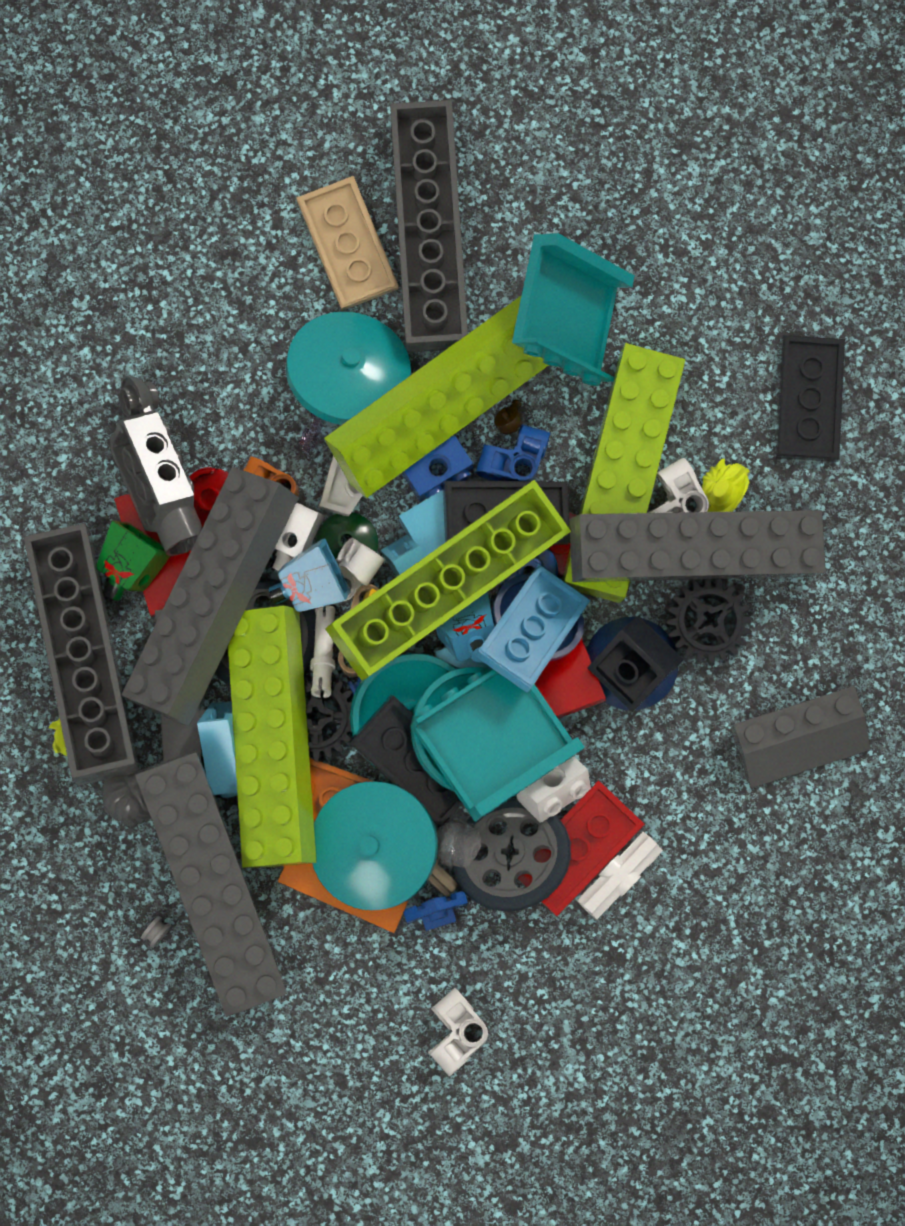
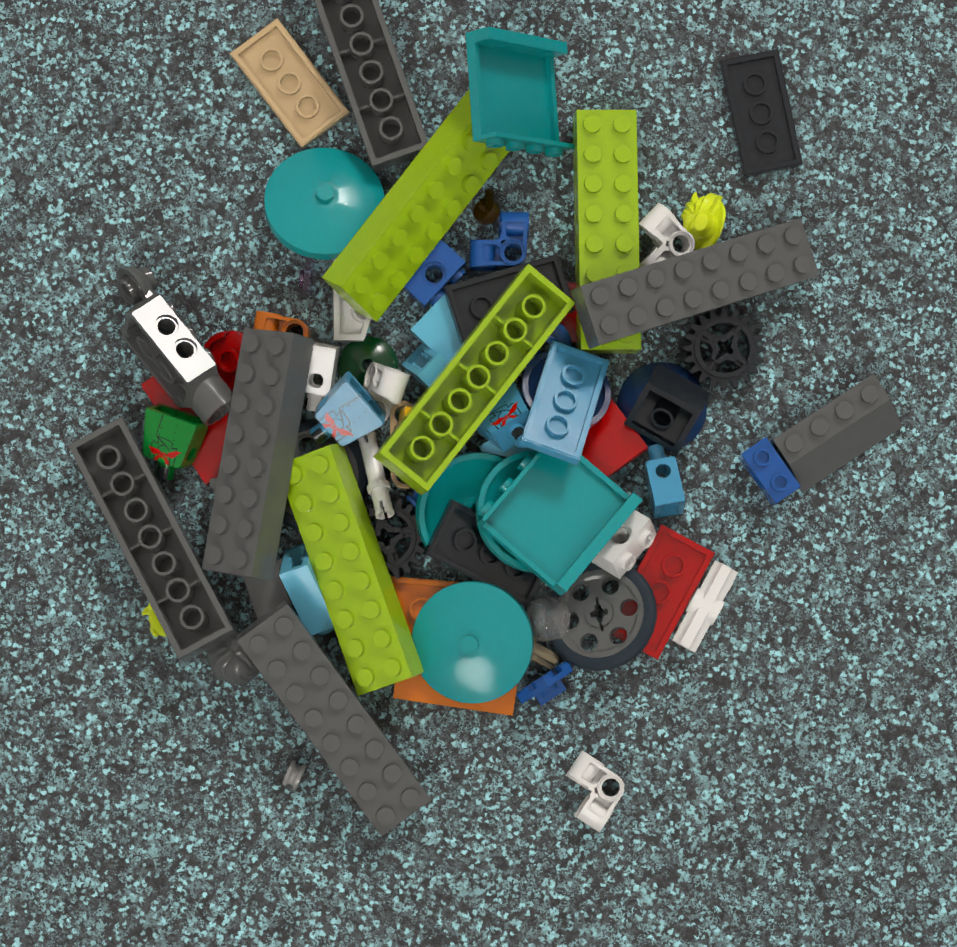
camera: 15 degrees left, 5 degrees up
(610, 747) = (665, 493): none -> dark azure torso
(722, 756) = (769, 471): none -> blue brick

